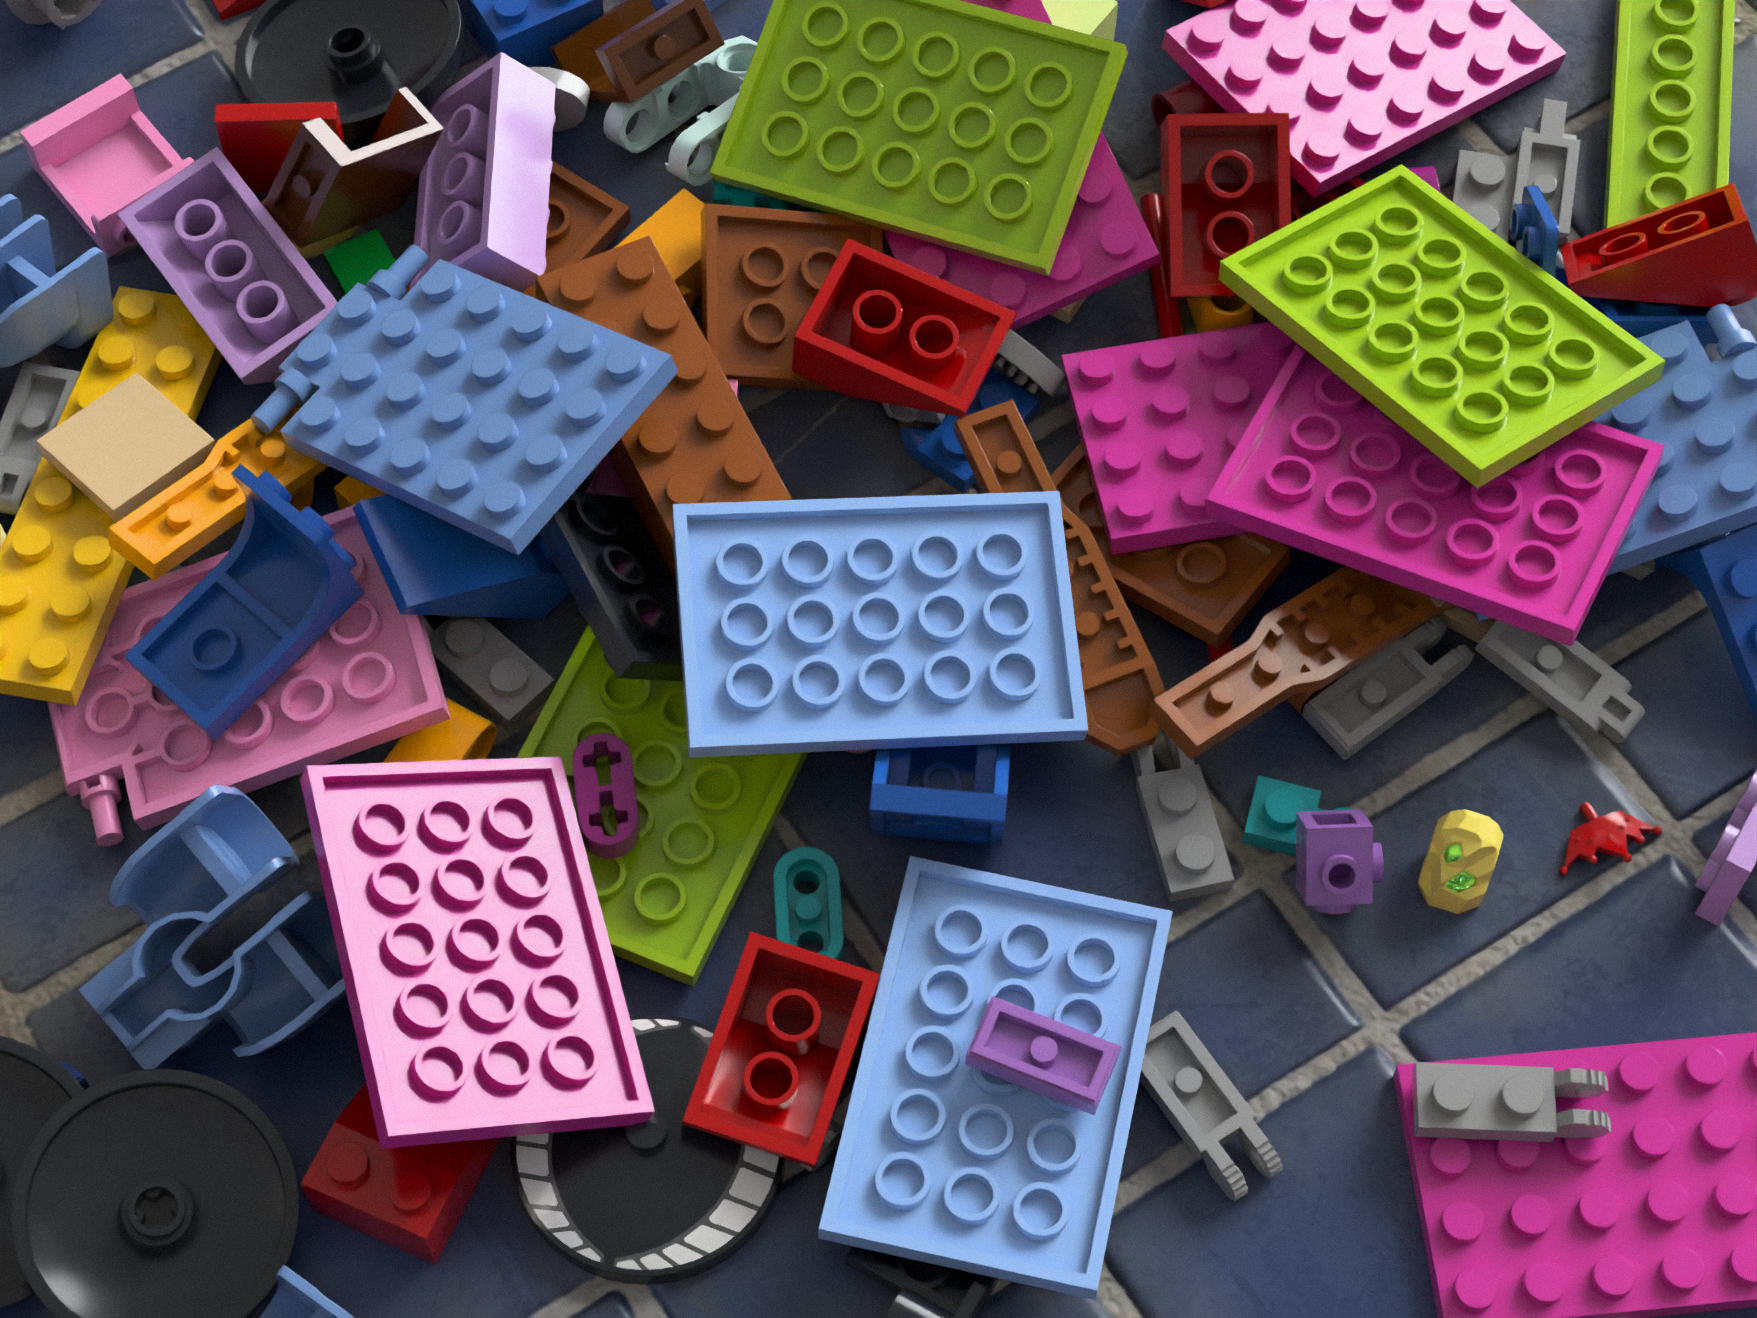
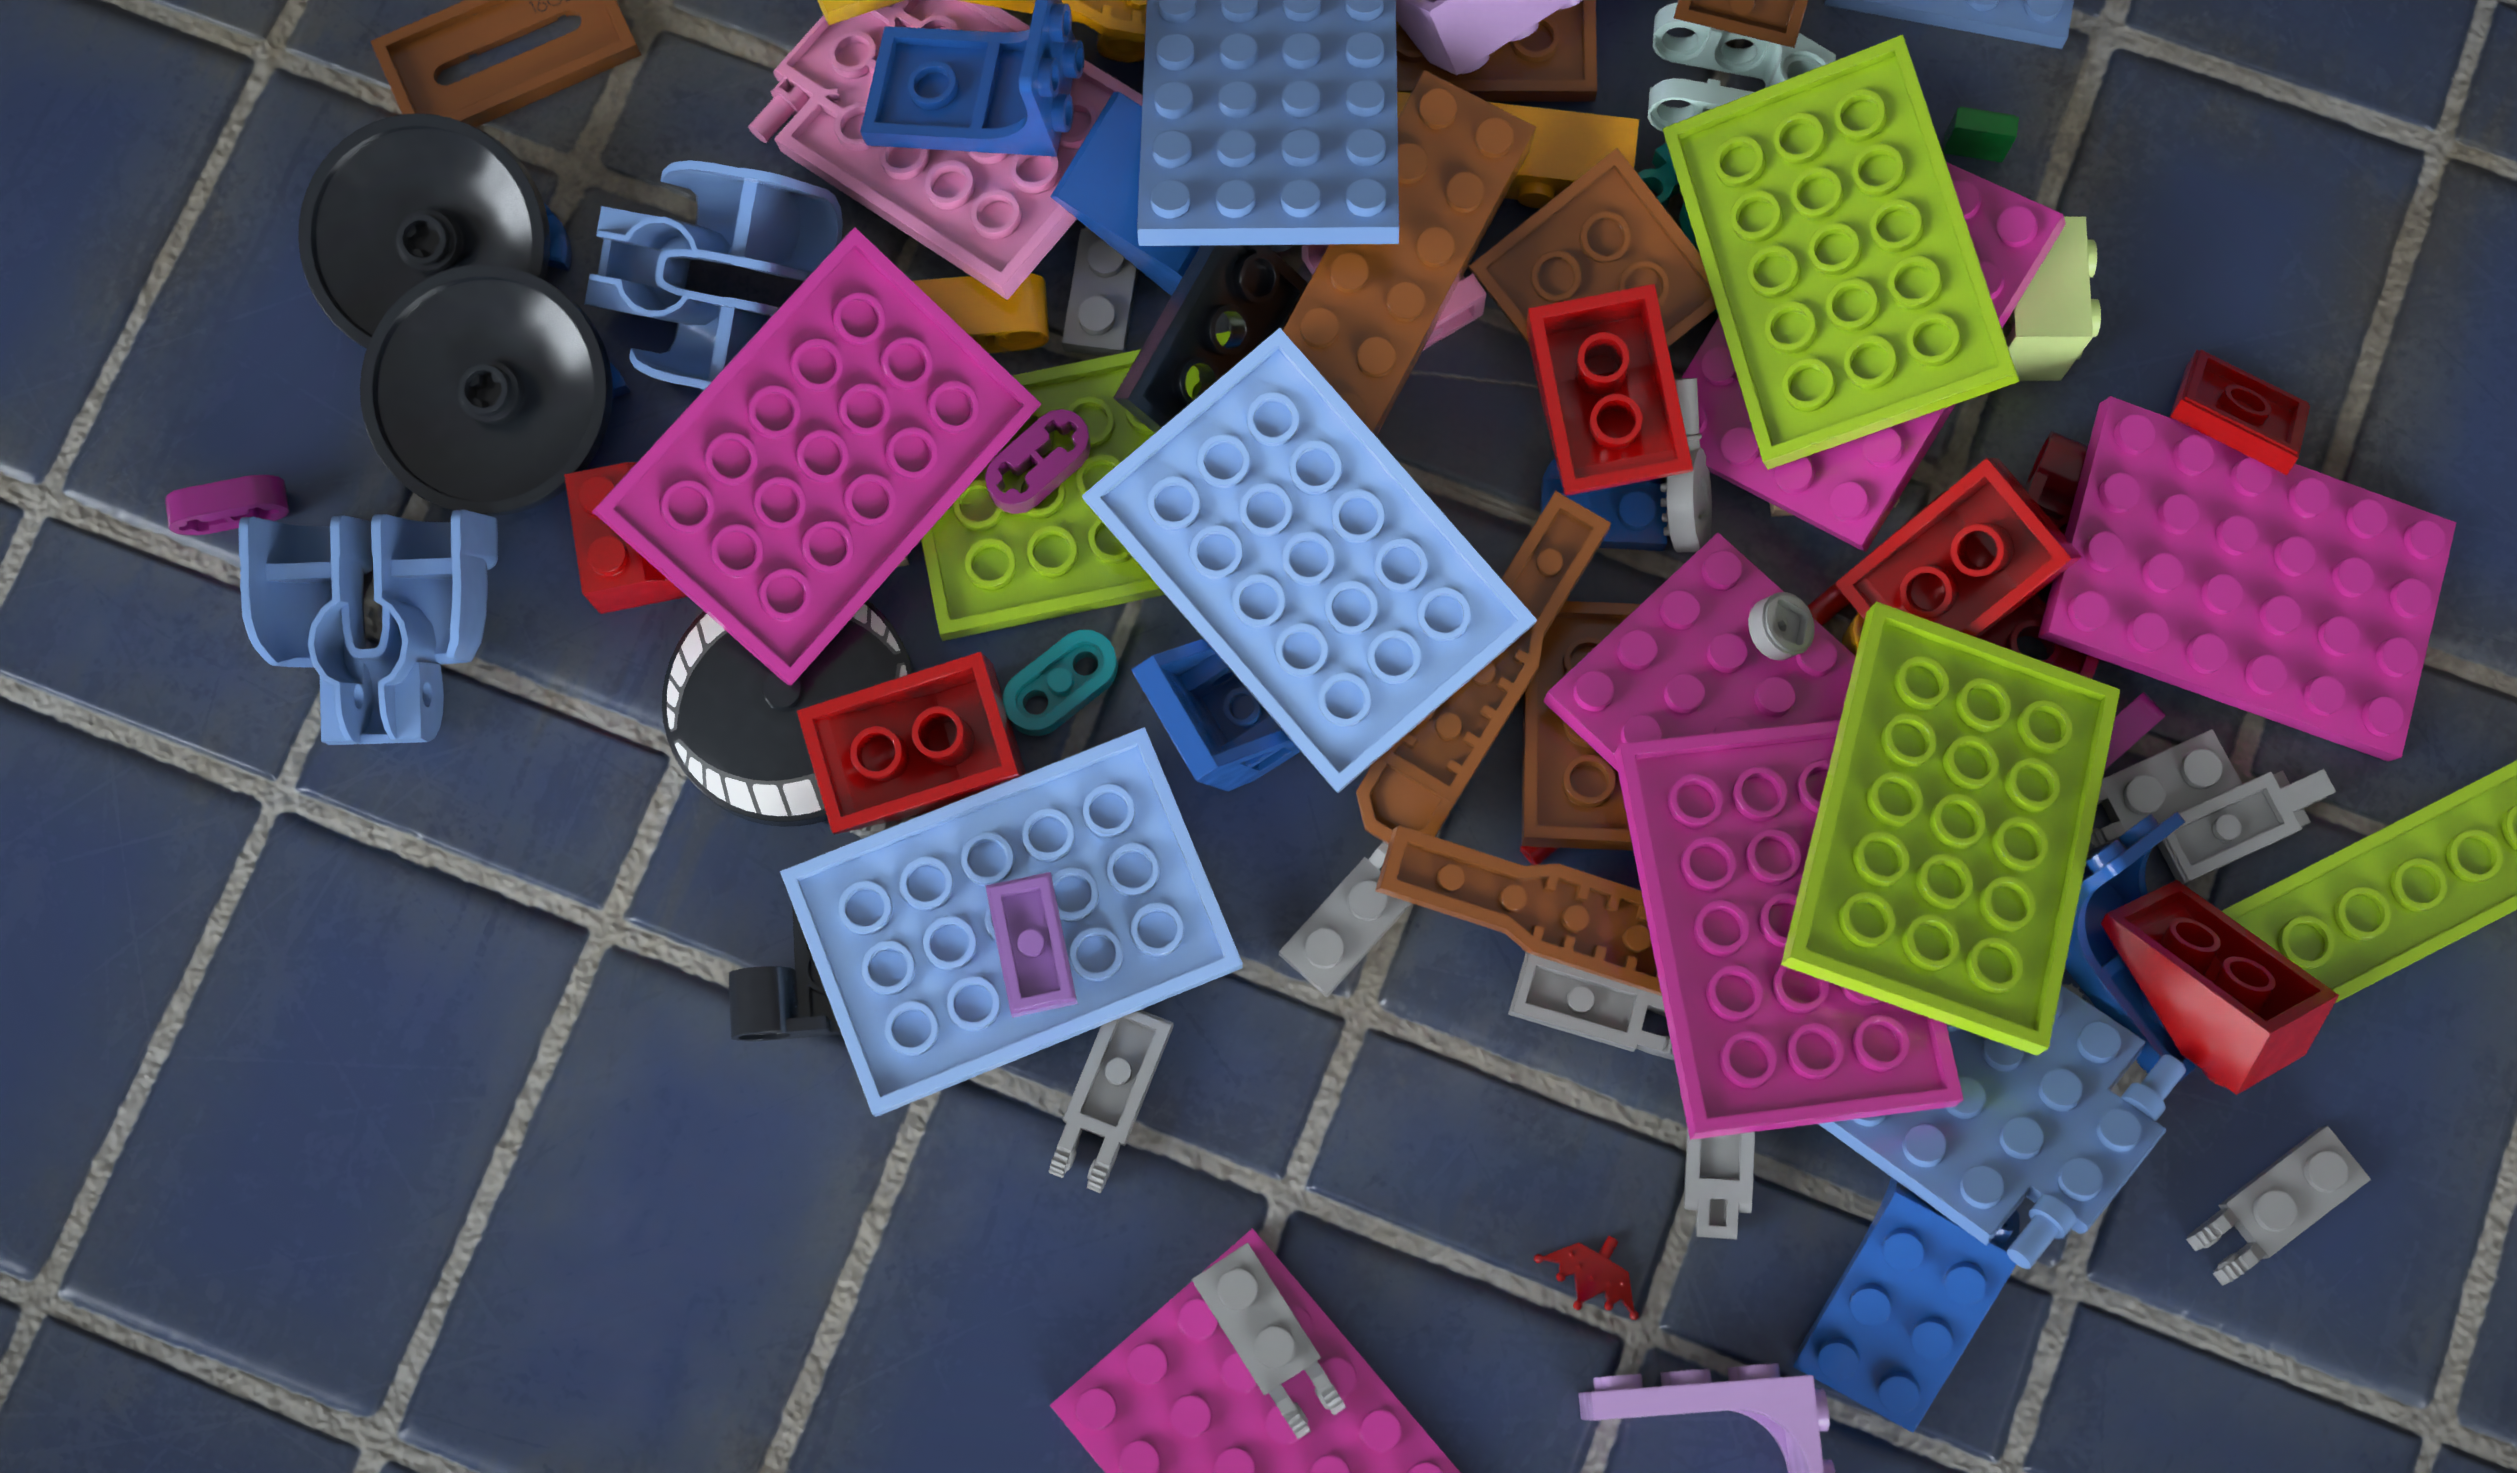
camera: 60 degrees right, 15 degrees up
(1182, 347) = (1781, 626): none -> light grey tile
(1273, 814) = (1420, 1002): teal plate -> none
(1336, 860) = (1395, 1064): medium lavender brick -> none
(1460, 861) = (1468, 1168): light yellow rock -> none

